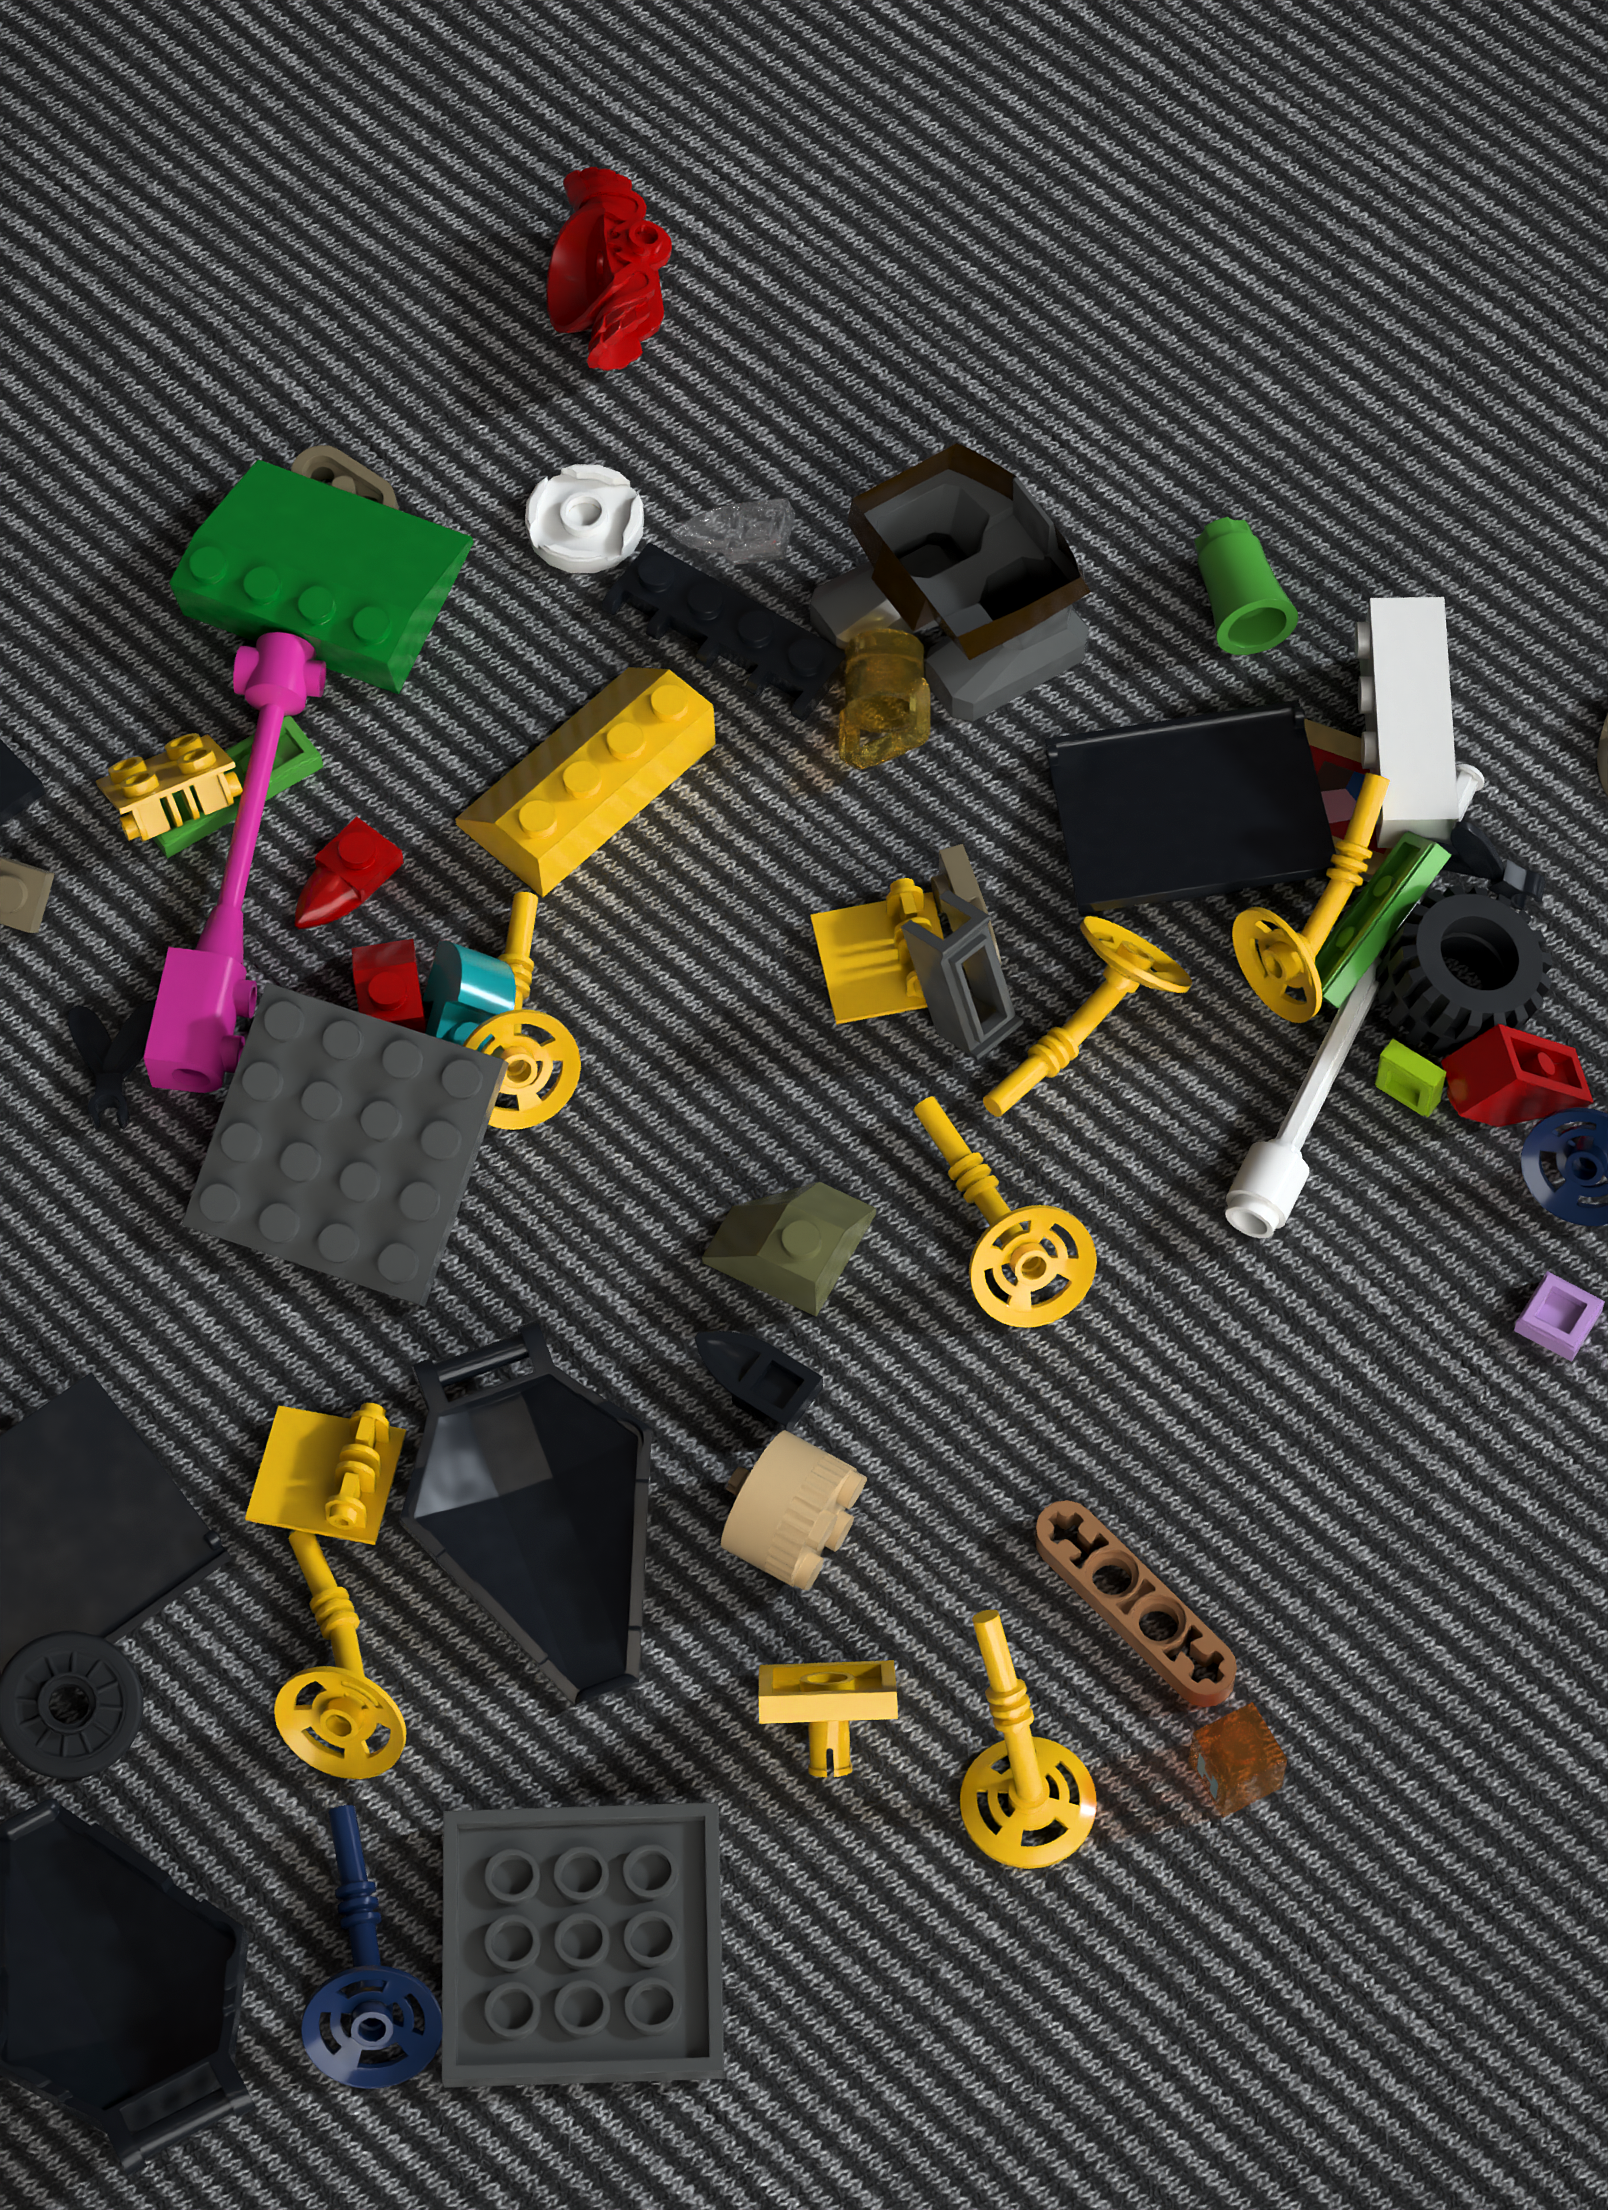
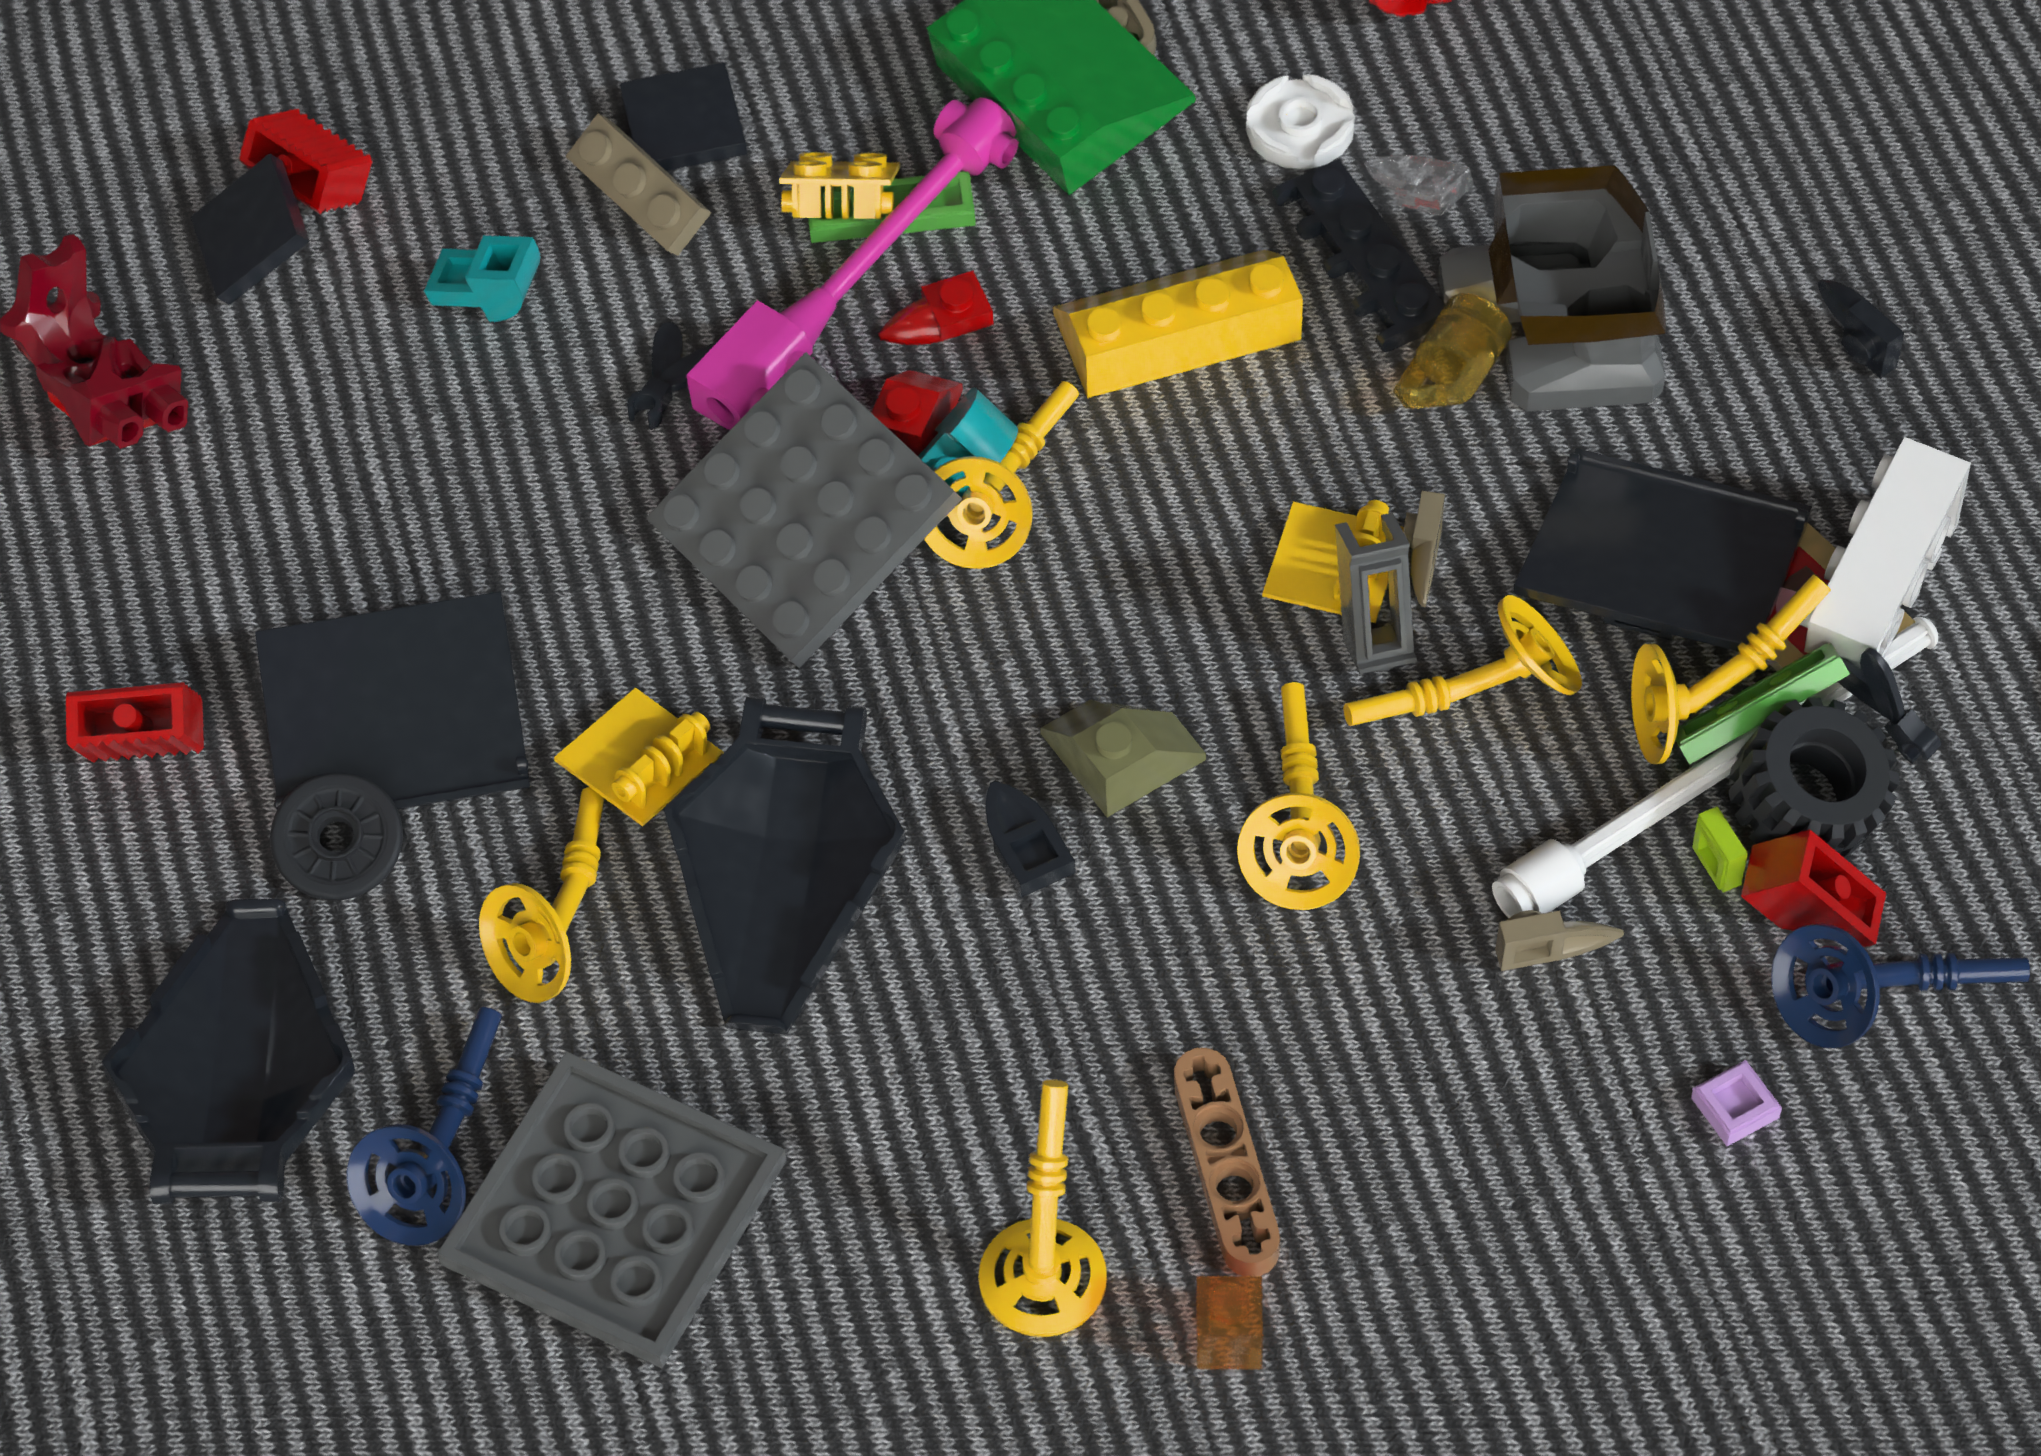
camera: 30 degrees right, 5 degrees down
(791, 1509) = (979, 947): tan piece -> none
(828, 1699) = (918, 1110): yellow tile -> none
(1242, 589) = (1816, 397): bright green plant -> none
(1243, 497) = (1867, 332): none -> black plate
(1293, 1245) = (1542, 938): none -> dark tan plate

